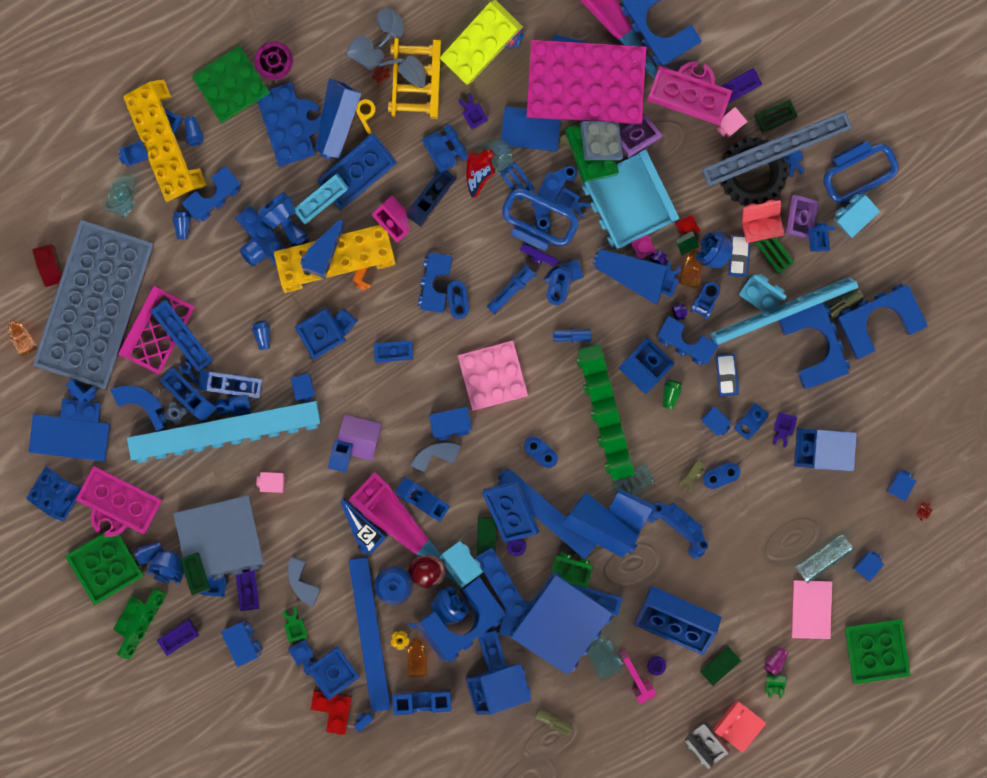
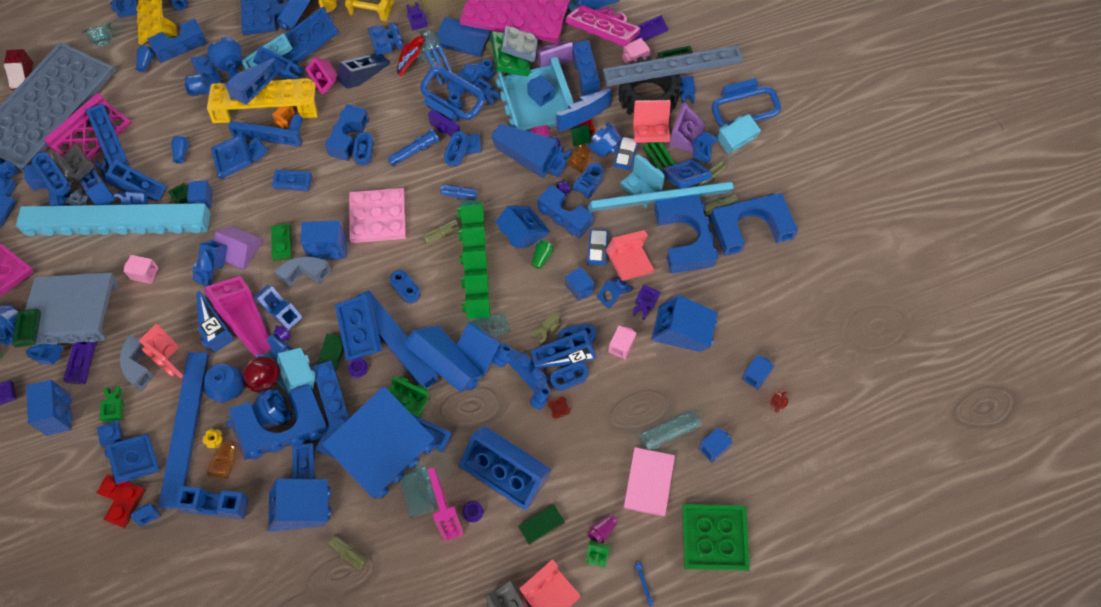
camera: 10 degrees right, 25 degrees down
(140, 392) = (51, 174): none -> blue plate
(161, 376) = (74, 163): none -> flat silver bracket
(280, 387) = (179, 194): none -> dark green tile
(322, 562) = (161, 346): none -> coral bracket
(333, 212) = (283, 64): none -> blue hinge
(337, 475) = (203, 270): none -> blue plate
(376, 299) = (270, 134): none -> blue piece
(402, 424) = (281, 242): none -> green plate
(434, 525) = (282, 333): none -> dark purple plate
(436, 541) = (277, 345): none -> blue cone
(564, 385) = (441, 232): none -> olive axle
(634, 194) = (540, 90): none -> blue brick
(679, 154) = (587, 71): none -> blue arch
(690, 211) = (585, 109): none -> blue slope
(712, 553) = (558, 413): none -> clear red plate
(713, 499) = (566, 351): none -> blue slope
(721, 521) = (567, 374): none -> blue plate
(762, 385) = (629, 256): none -> coral bracket
(767, 476) = (622, 342): none -> bright pink brick
(806, 275) = (686, 173): none -> blue tile
(812, 687) = (638, 566): none -> blue hinge
(830, 269) = (715, 170): none -> olive axle

